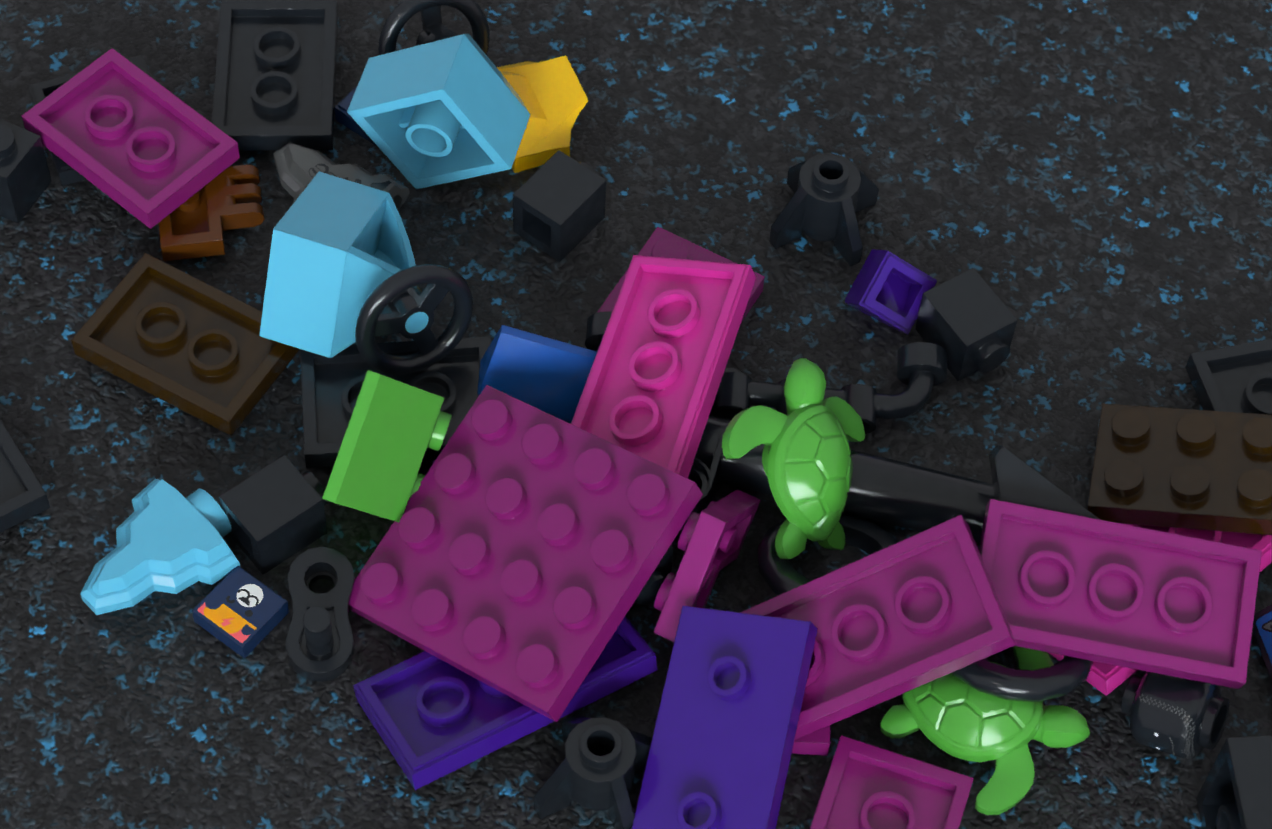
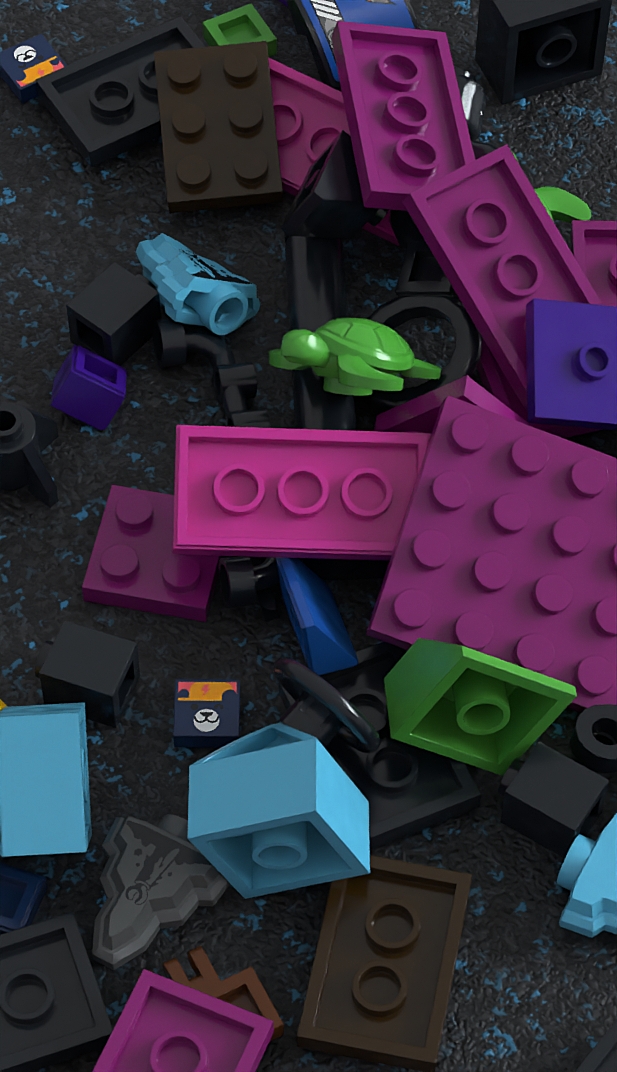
camera: 105 degrees left, 0 degrees up
(496, 289) = (206, 712): none -> dark blue tile
(977, 394) = (196, 287): none -> medium azure rock

